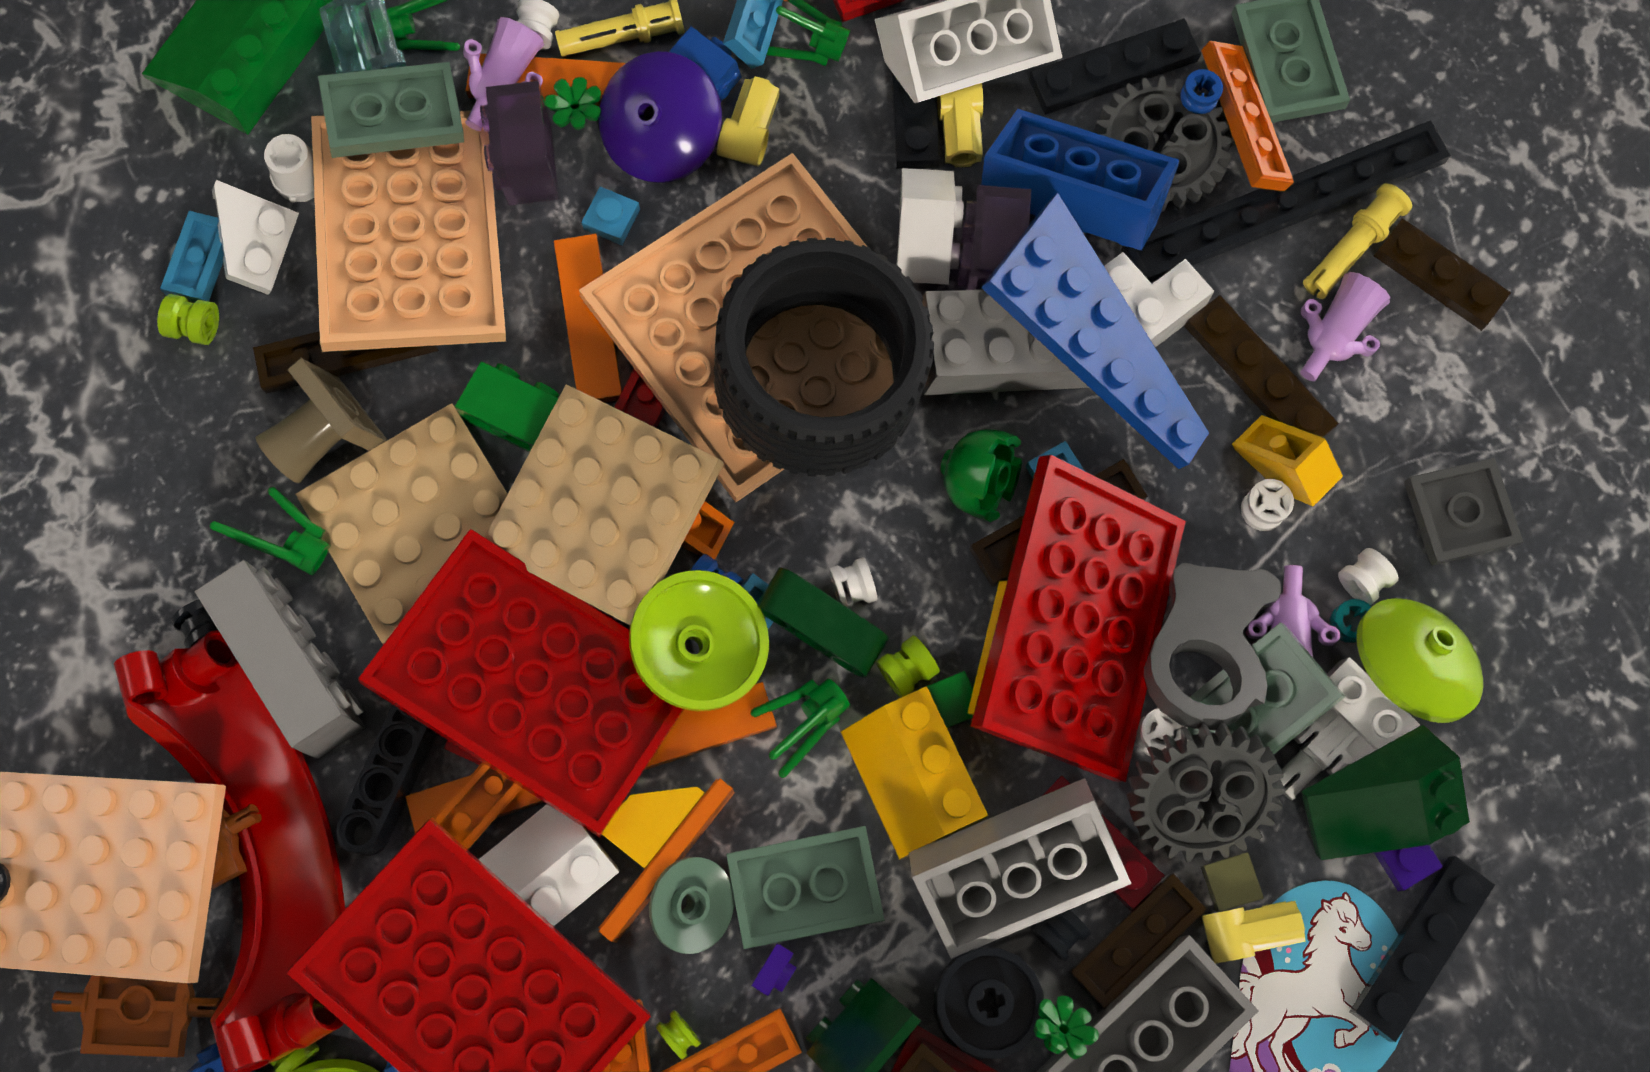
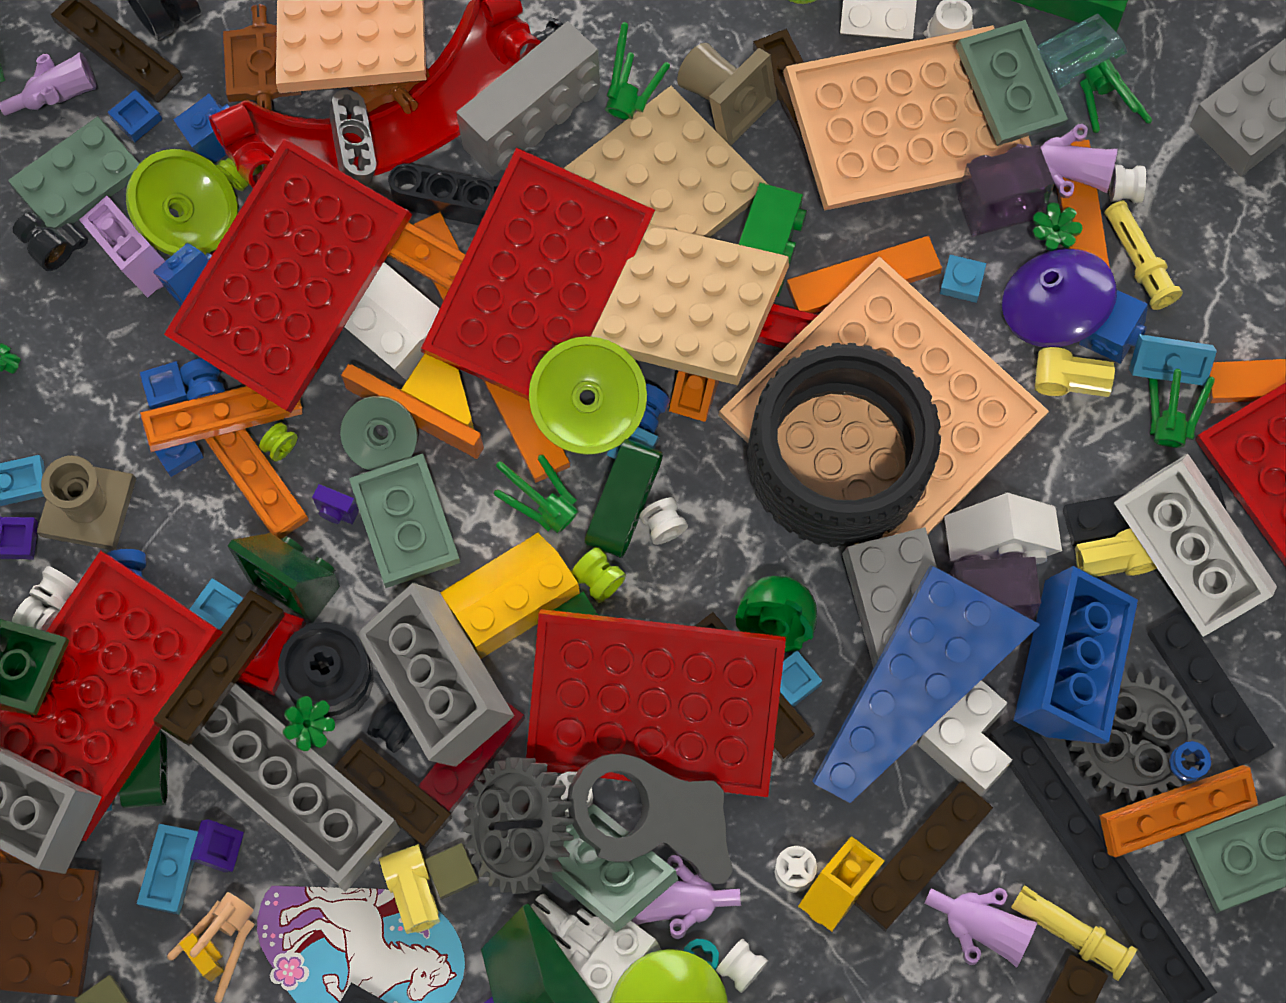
camera: 85 degrees right, 5 degrees down
(267, 881) = (358, 125): none -> dark grey beam

